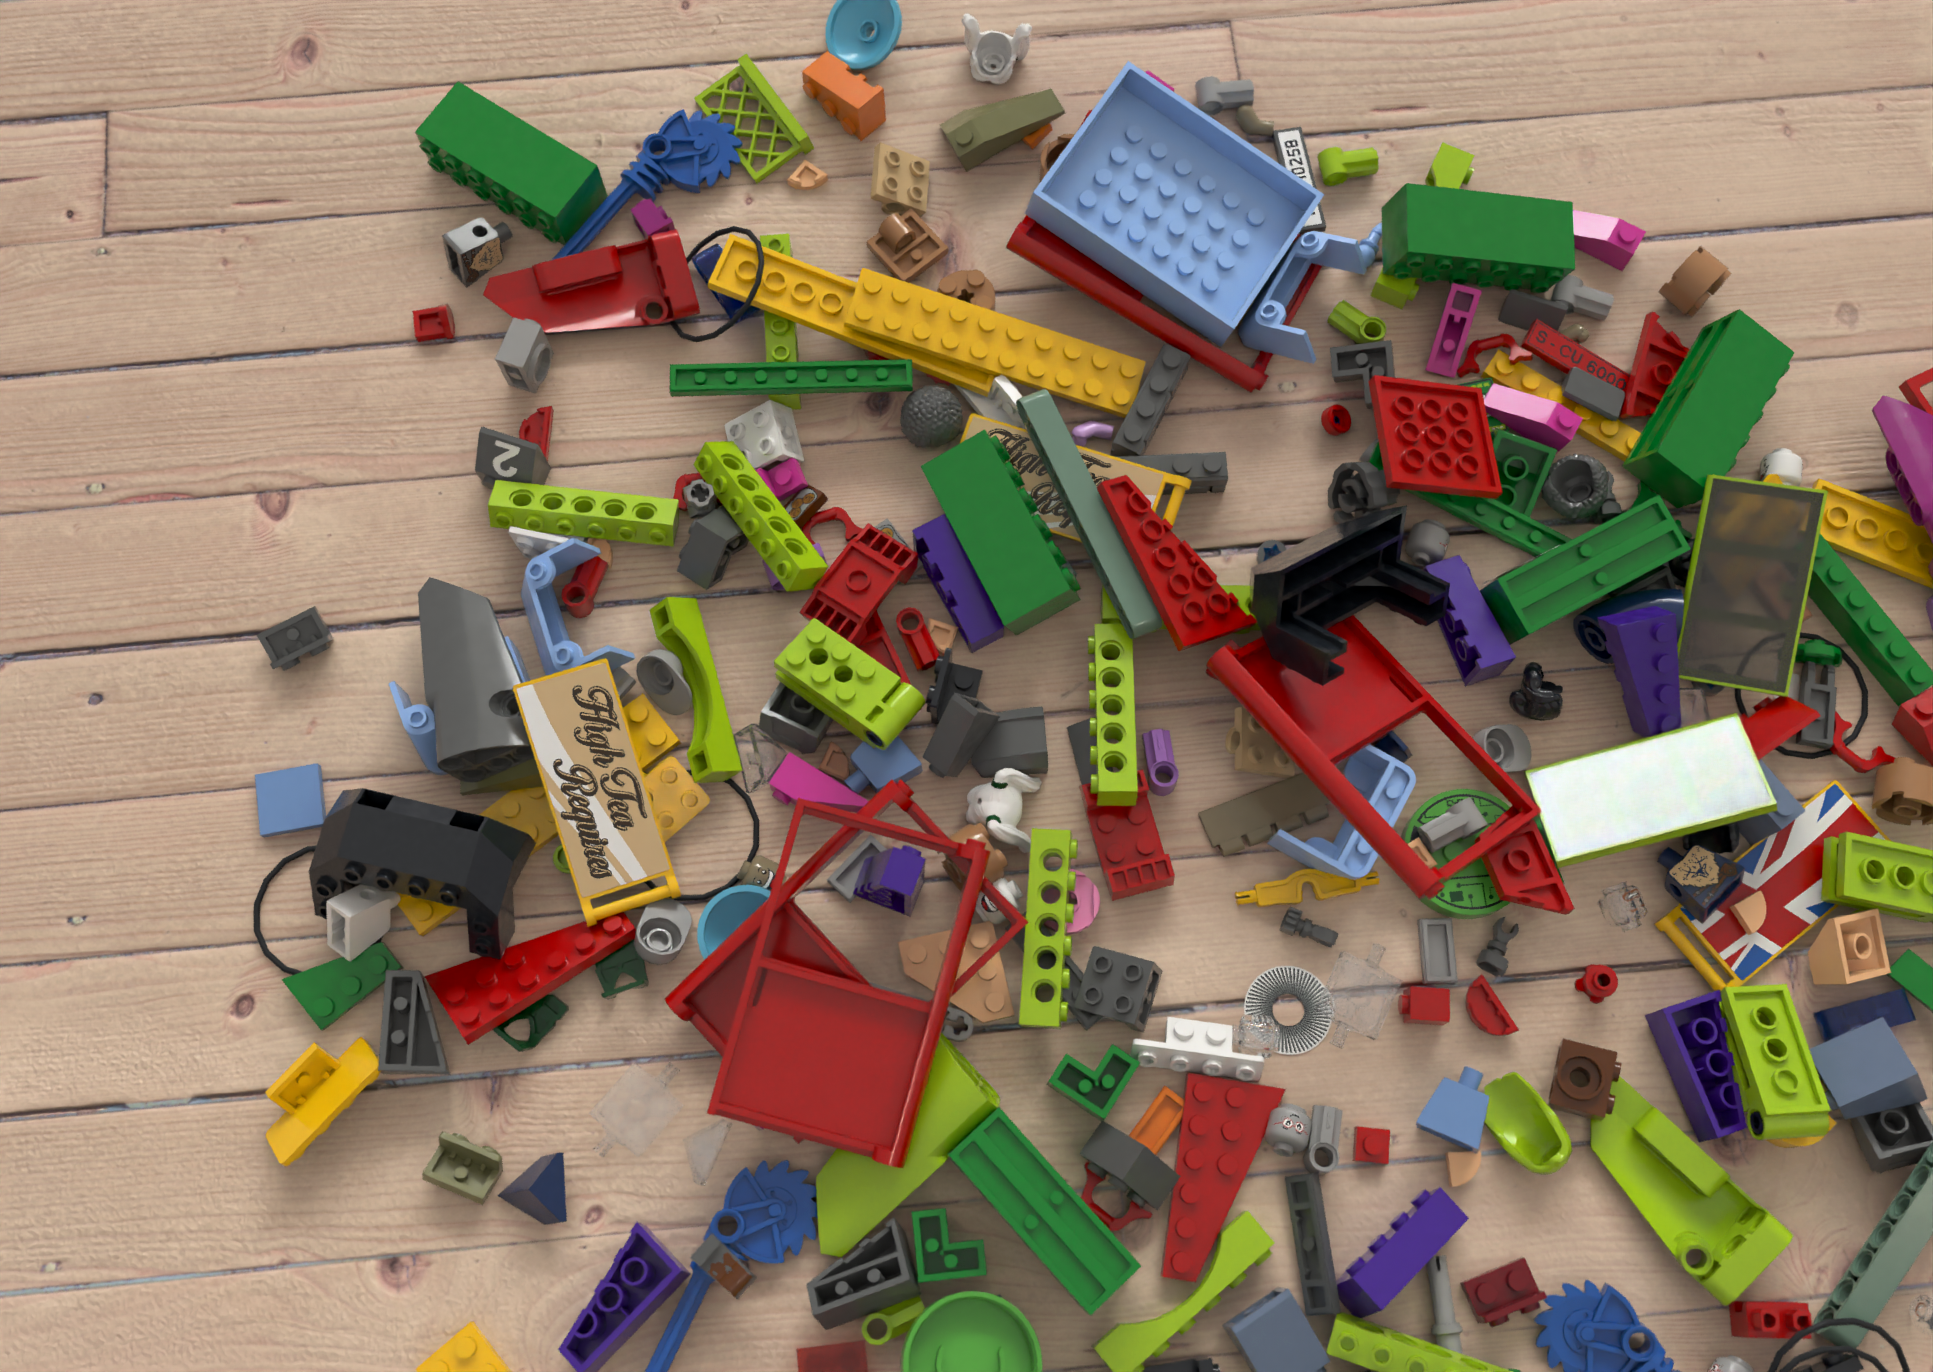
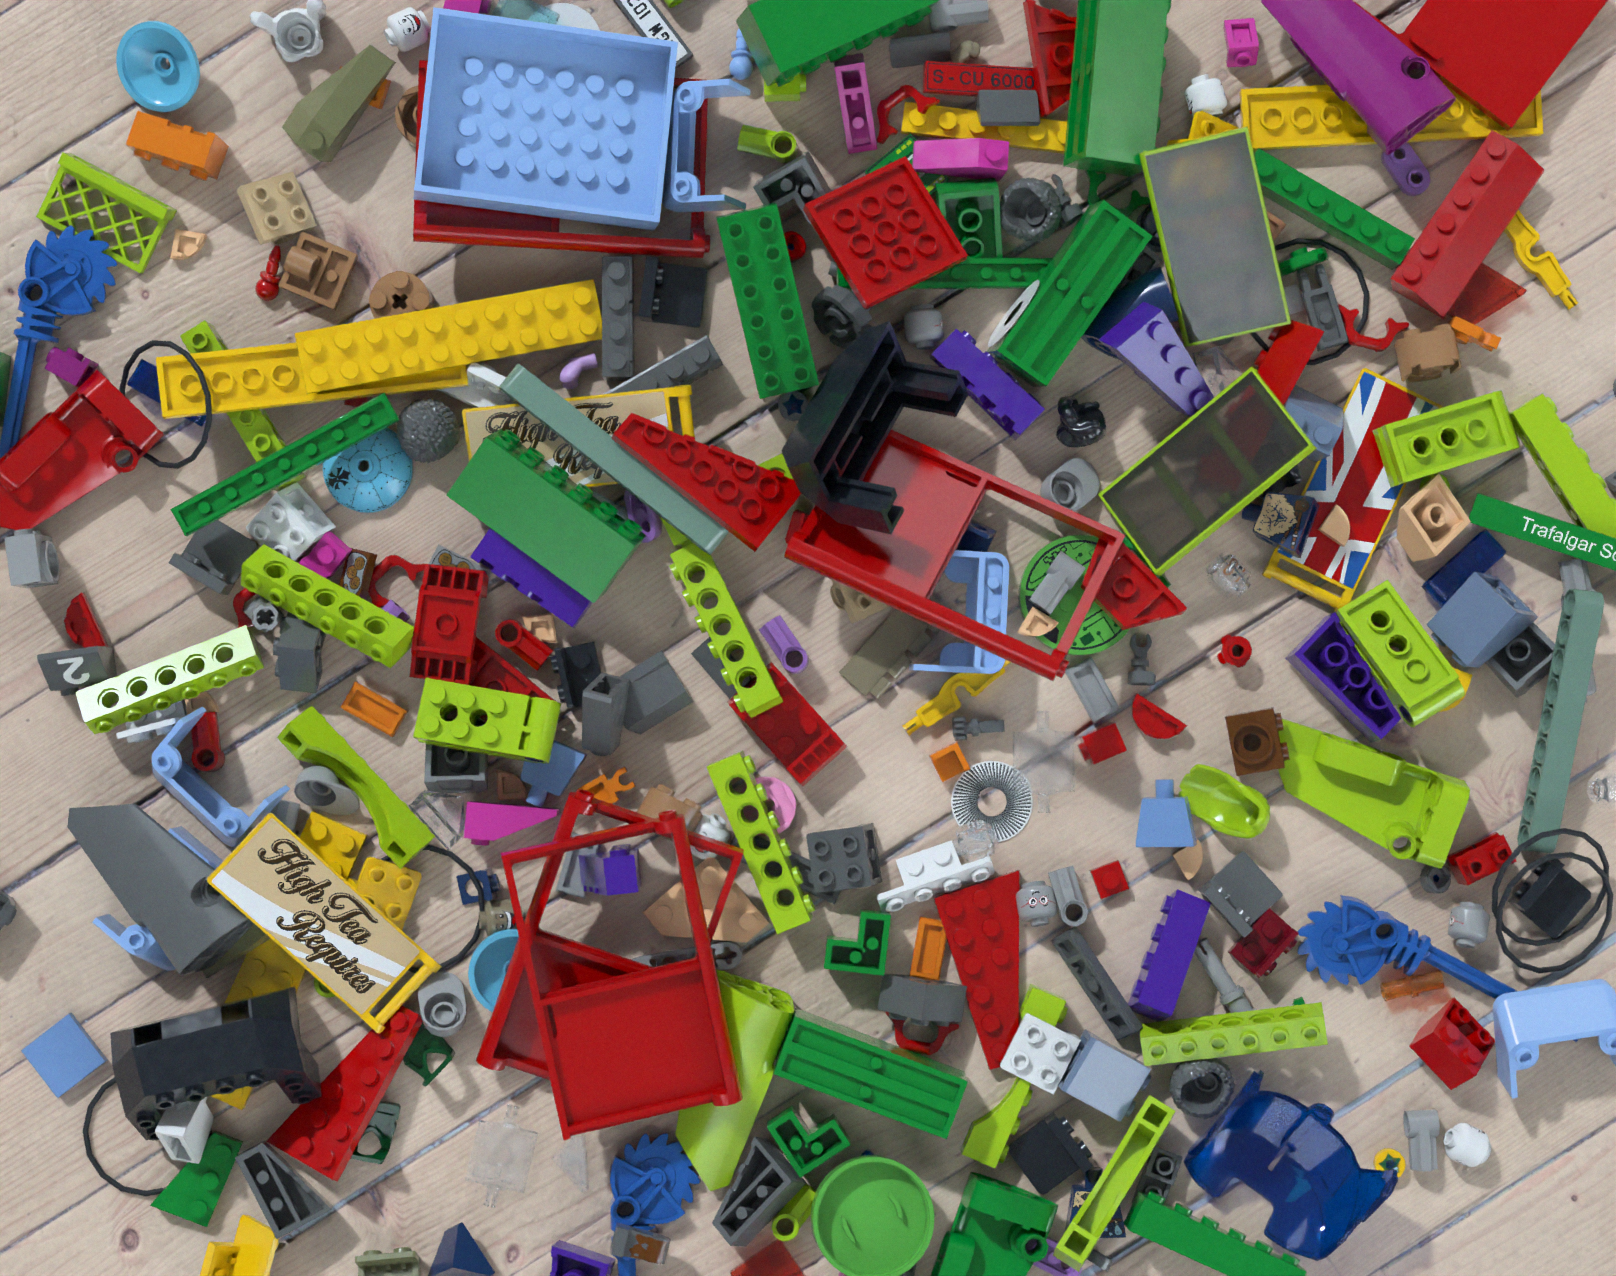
camera: 20 degrees left, 15 degrees up
(683, 431) = (215, 556): none -> dark grey bracket
(750, 633) = (374, 709): none -> orange tile
(769, 839) = (490, 886): none -> dark blue bracket
(855, 241) = (267, 286): none -> red bar
(864, 442) = (381, 484): none -> medium azure dish
(931, 808) = (606, 789): none -> orange plate
(999, 806) = (668, 755): white hair -> none
(1085, 94) = (407, 29): none -> white head
(1088, 581) = (642, 515): none -> medium lavender plate
(1208, 408) = (672, 293): none -> black bracket
(1223, 1283) = (1040, 1053): none -> white bracket
(1266, 947) = (949, 761): none -> orange panel
(1298, 441) = (767, 300): none -> green brick
(1501, 1227) = (1241, 893): none -> dark grey bracket
(1711, 1316) = (1434, 879): none -> dark grey tile
(1834, 443) = (1241, 42): none -> dark pink bracket

